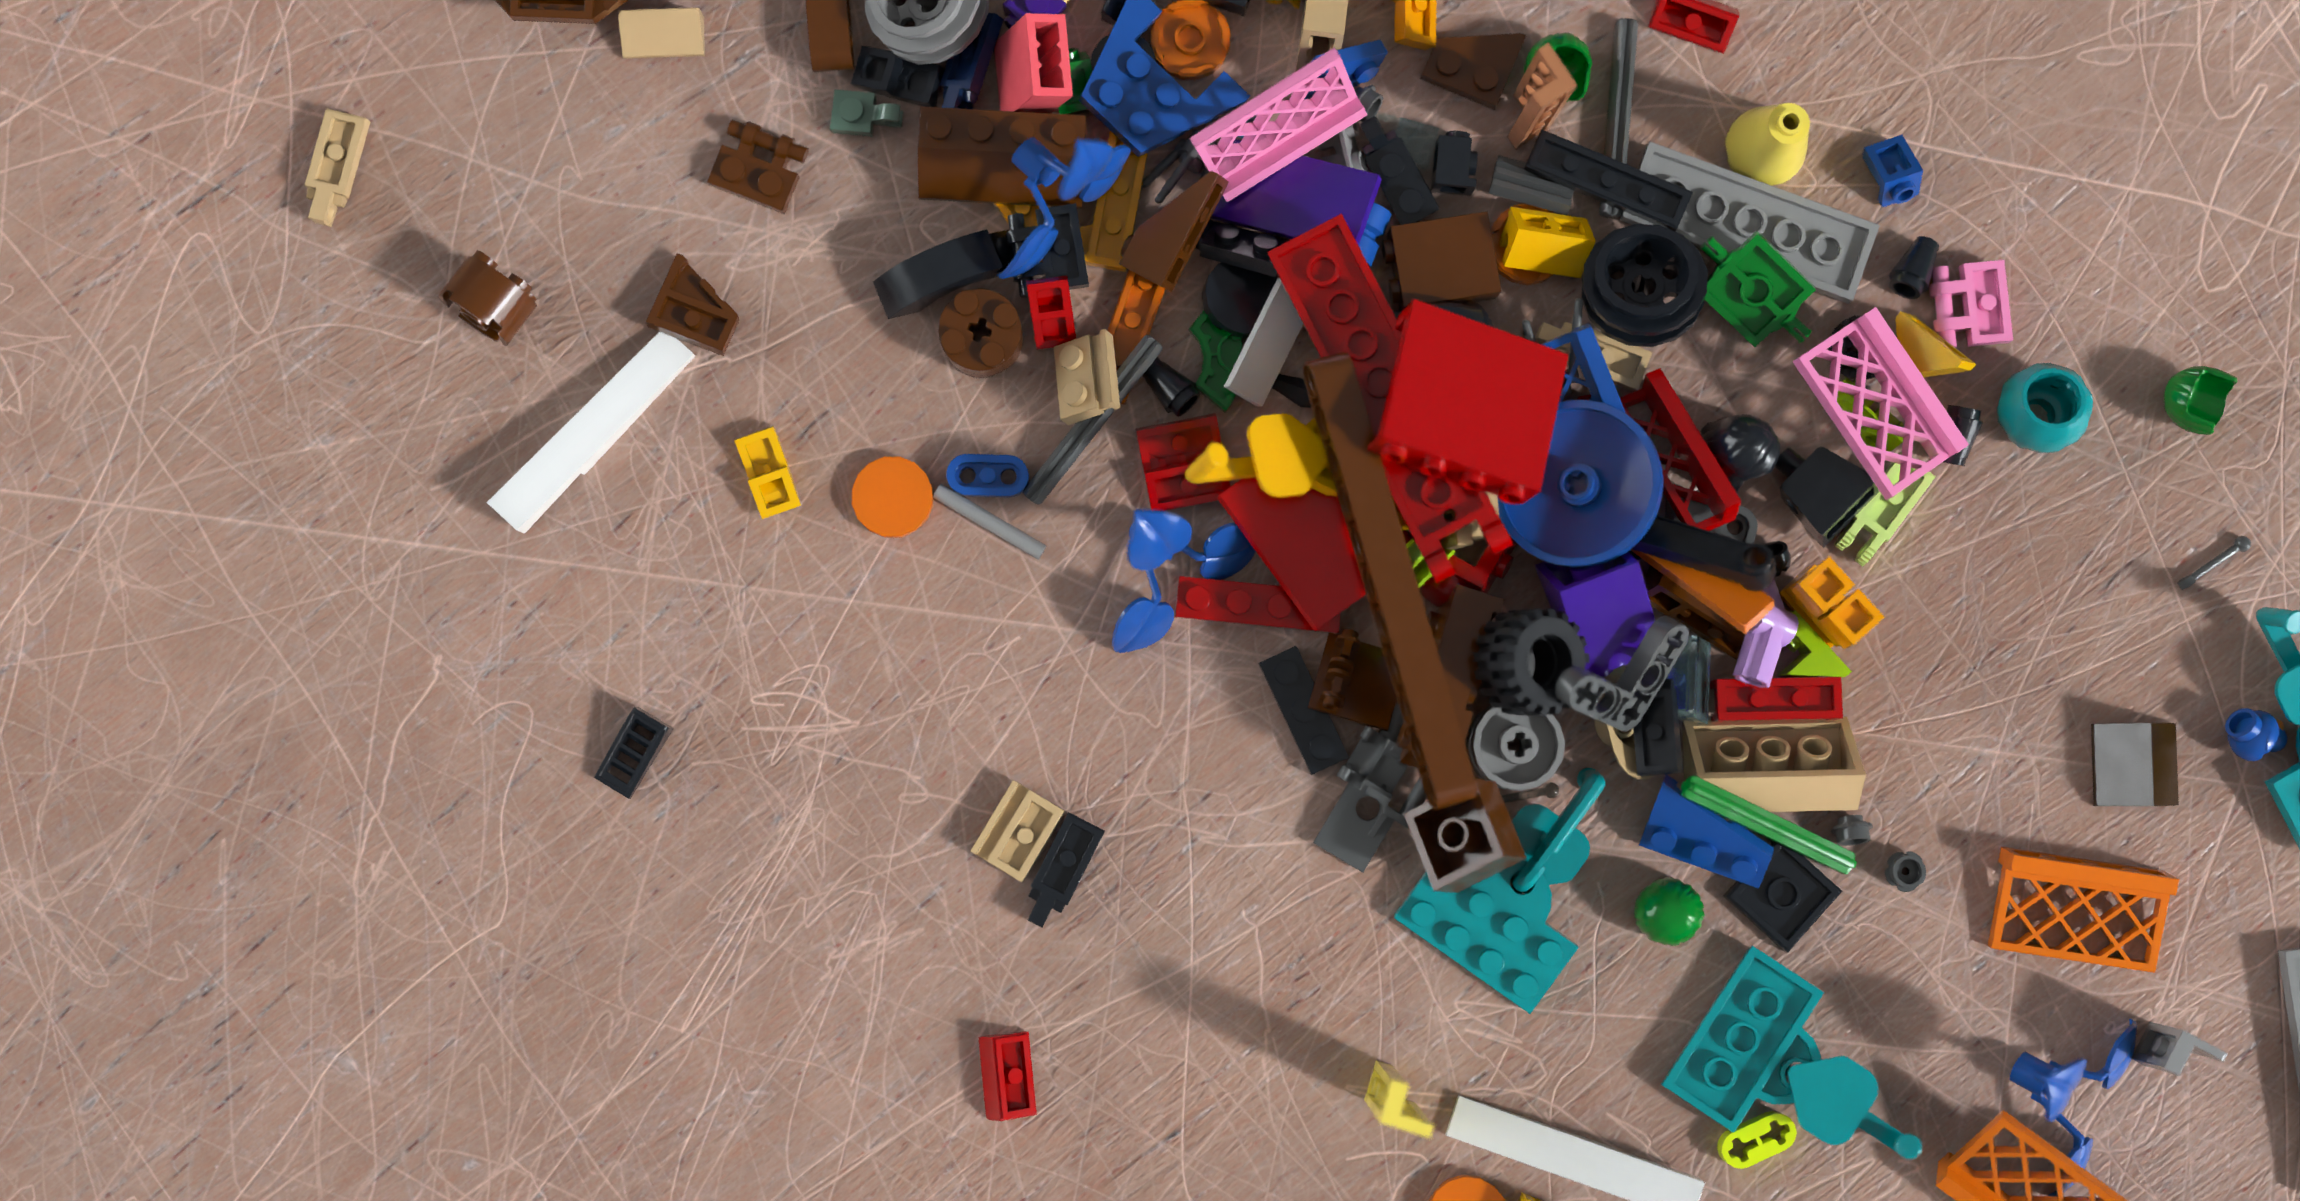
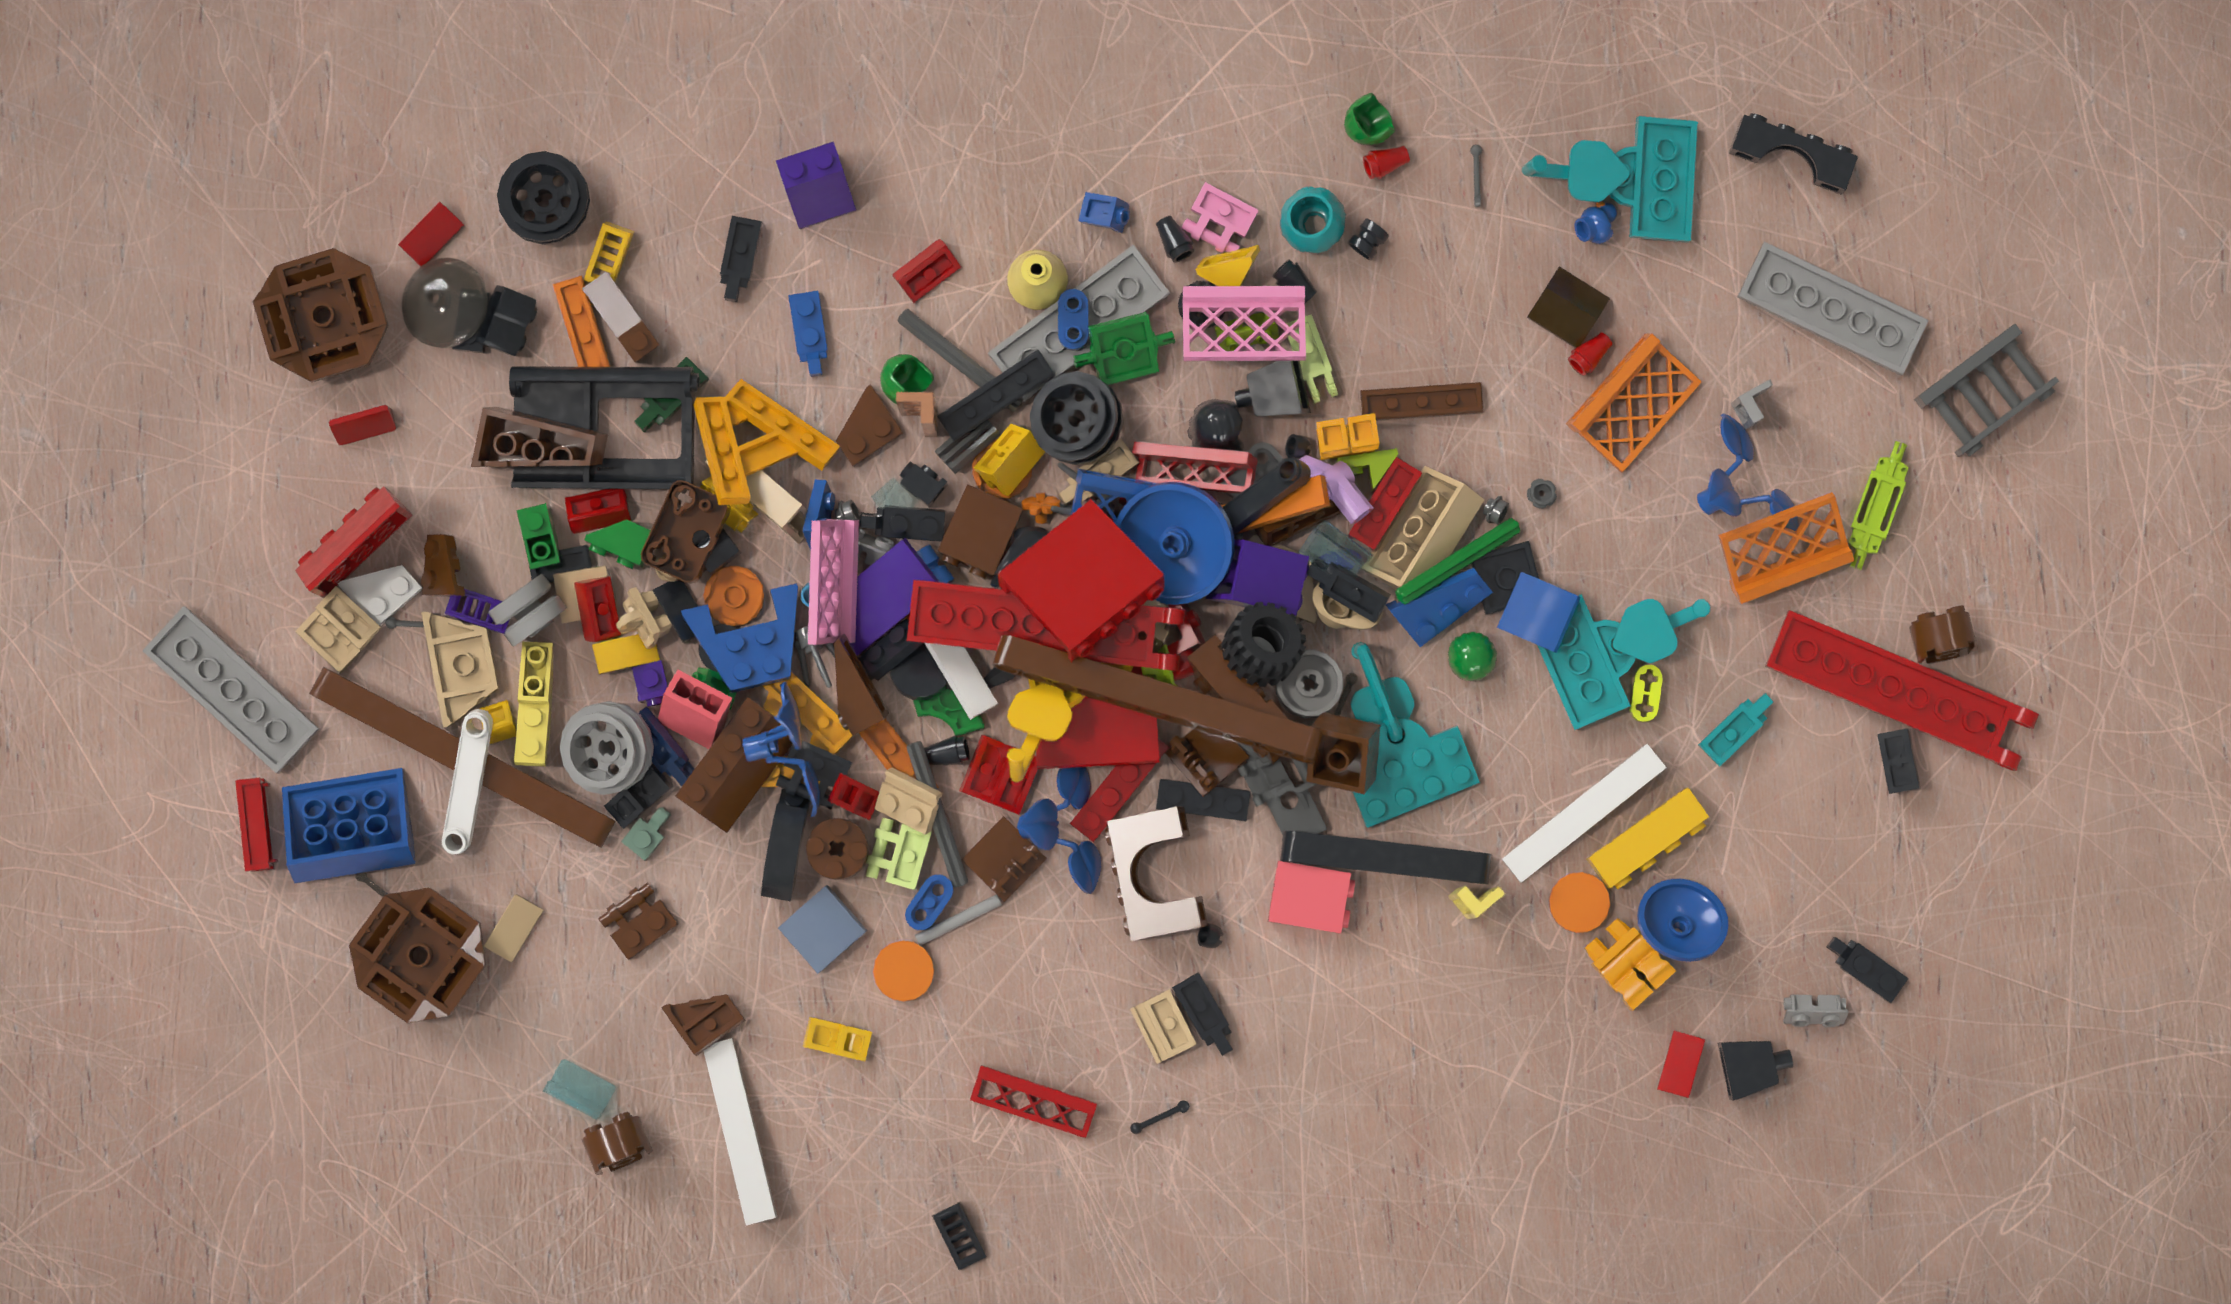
camera: 55 degrees left, 0 degrees up
(334, 164) = (462, 1187): tan hinge -> none
(527, 222) = (580, 1089): none -> clear light blue panel
(852, 733) = (1037, 1090): none -> red fence
(880, 375) = (822, 929): none -> sand blue slope
(940, 911) = (1182, 1106): none -> black hinge
(1007, 1076) = (1310, 1130): red slope -> none
(1022, 418) = (907, 856): none -> yellowish green plate
(1090, 528) = (1003, 859): none -> reddish brown hinge
(1154, 817) = (1209, 936): none -> black hinge
(1203, 656) = (1129, 841): none -> arch
(1273, 905) = (1311, 897): none -> coral brick
(1375, 961) = (1385, 857): none -> black beam
(1513, 311) = (1040, 506): none -> orange plant
(1629, 697) = (1325, 606): dark grey beam -> none
(1752, 209) = (1073, 319): none -> blue plate
(1772, 956) = (1538, 612): none -> blue slope
(1922, 671) = (1423, 401): none -> reddish brown tile
(2060, 485) = (1369, 238): none -> black wheel
(2098, 822) = (1589, 354): none -> red cone
(2161, 446) = (1384, 161): none -> red cone

